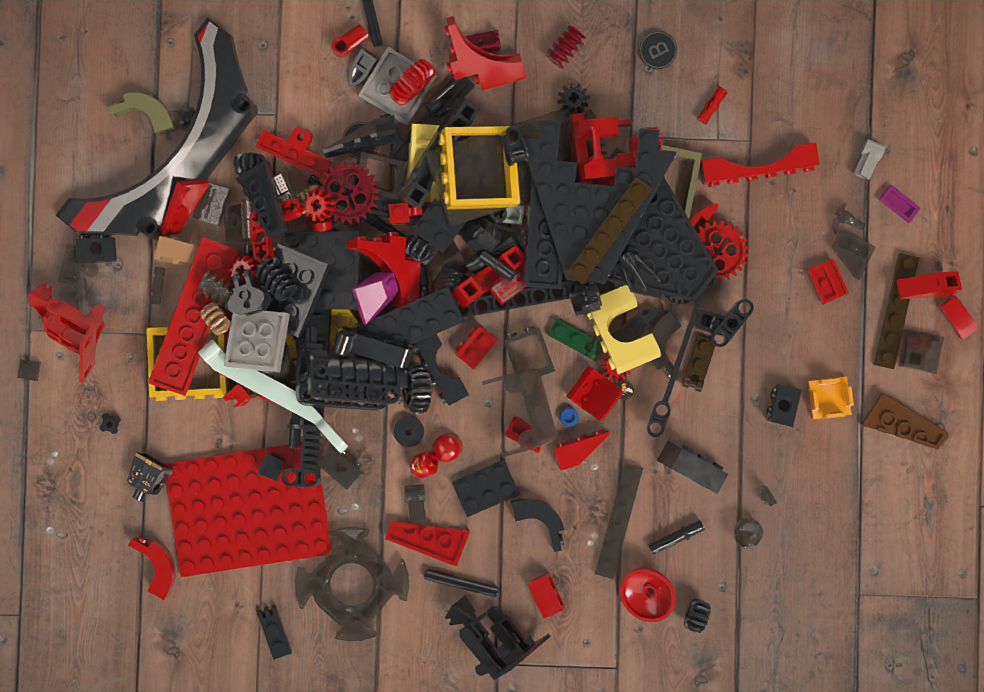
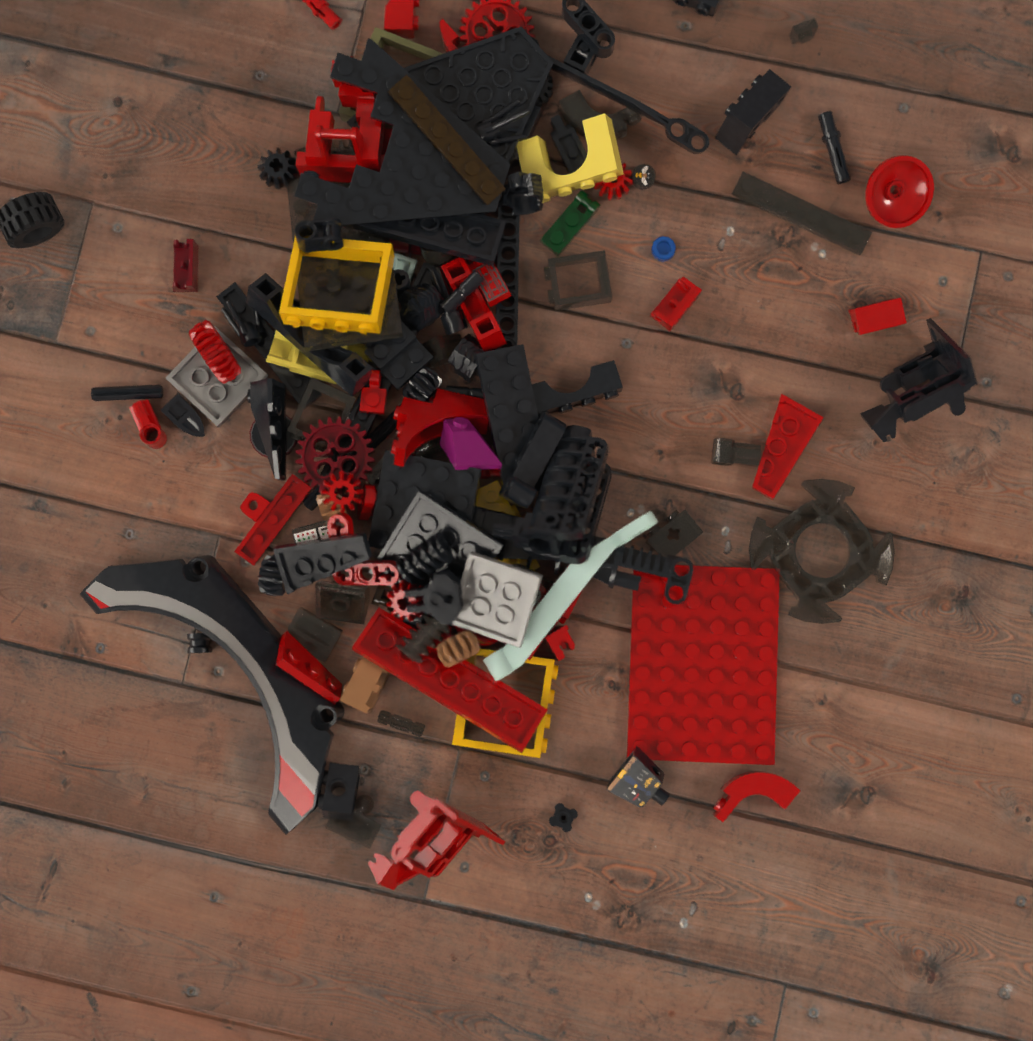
camera: 75 degrees left, 5 degrees down
(29, 370) = (475, 909): clear smoke plate -> none
(159, 115) = (173, 689): olive arch -> none
(271, 466) = (657, 620): black panel -> none
(274, 632) = (865, 660): black hinge -> none
(409, 440) = (648, 435): black piece -> none
(418, 394) = (598, 415): black gear -> none
(424, 464) = (689, 432): red head -> none
(447, 447) = (673, 402): red hair -> none
(461, 583) = (844, 417): black axle -> none
(476, 347) = (556, 343): red bracket -> none
(485, 488) = (732, 365): black plate -> none
(488, 68) = (217, 263): red arch -> none
(536, 509) = (767, 316): black arch -> none
(537, 406) = (613, 280): clear smoke windscreen -> none
(565, 46) = (211, 165): dark red piece -> none
(574, 453) = (709, 246): red slope -> none
(595, 393) = (642, 208): red bracket -> none
(658, 50) = (241, 59): black tile -> none
(697, 615) = (935, 138): black gear -> none
(699, 363) = (628, 81): dark brown plate -> none
(748, 533) = (844, 61): clear smoke hair -> none

